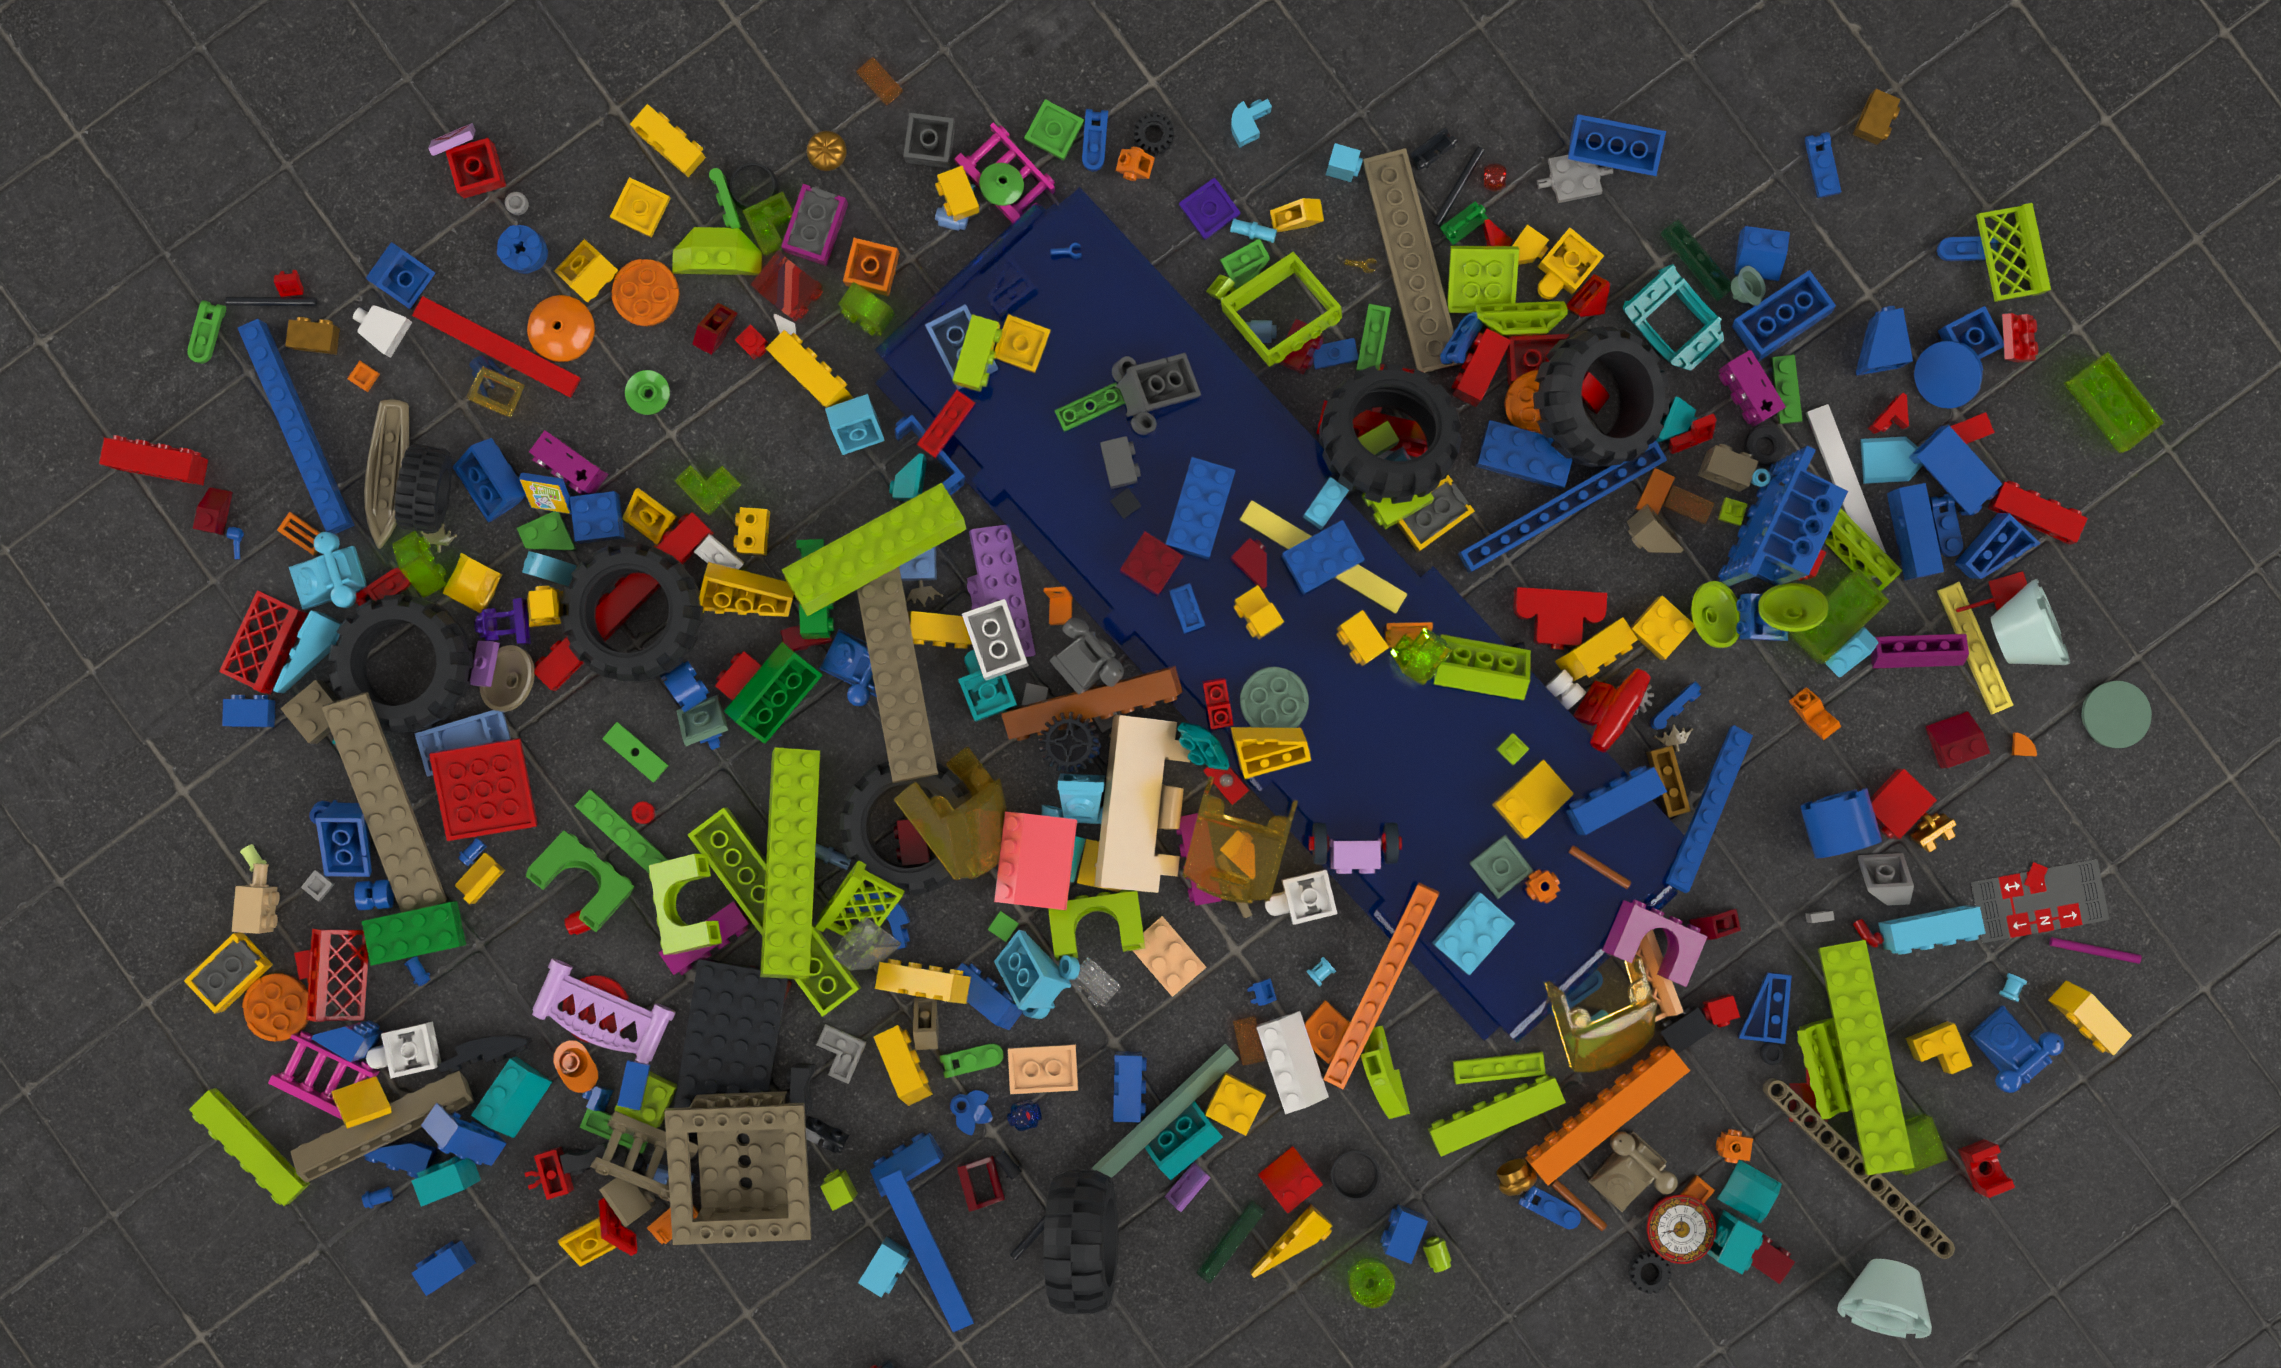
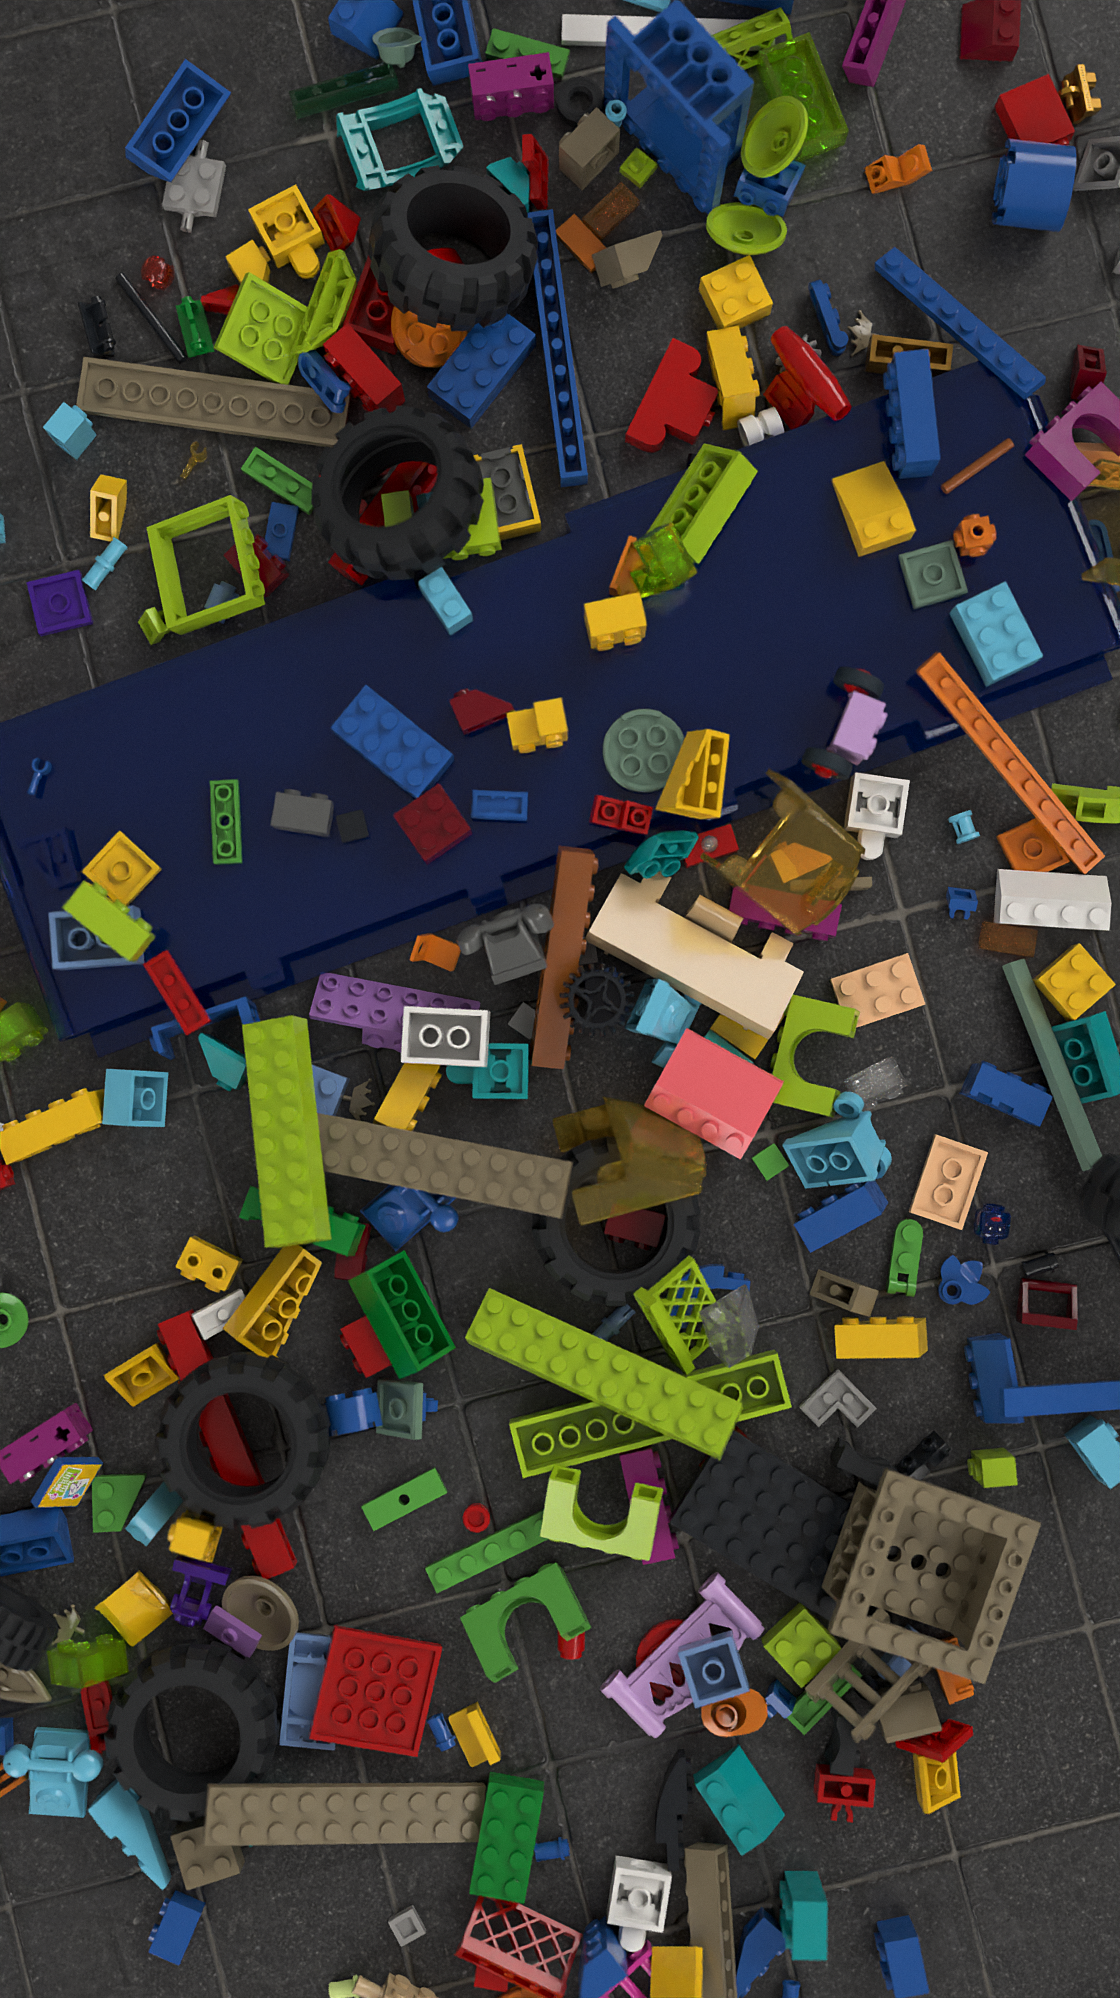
camera: 70 degrees left, 0 degrees up
(277, 653) = (116, 1866): red fence -> none
(342, 838) = (365, 1877): blue piece -> none
(370, 895) = (442, 1870): blue wheel -> none
(462, 1137) = (764, 1876): blue wedge -> none
(597, 517) = (119, 1435): blue brick -> none
(602, 1036) = (713, 1669): none -> medium blue brick
(633, 1085) = (783, 1654): blue tile -> none
(708, 493) = (144, 1297): clear neon green brick -> none
(923, 982) = (798, 1279): yellow wedge -> none
(1153, 387) = (233, 739): dark grey piece -> none
(1245, 263) = (137, 586): bright green wing -> none
(1290, 536) = (504, 629): light yellow tile -> none
(1323, 557) = (505, 627): blue brick -> none
(1512, 749) = (806, 508): lime tile -> none
(1852, 652) = (850, 95): medium azure brick -> none

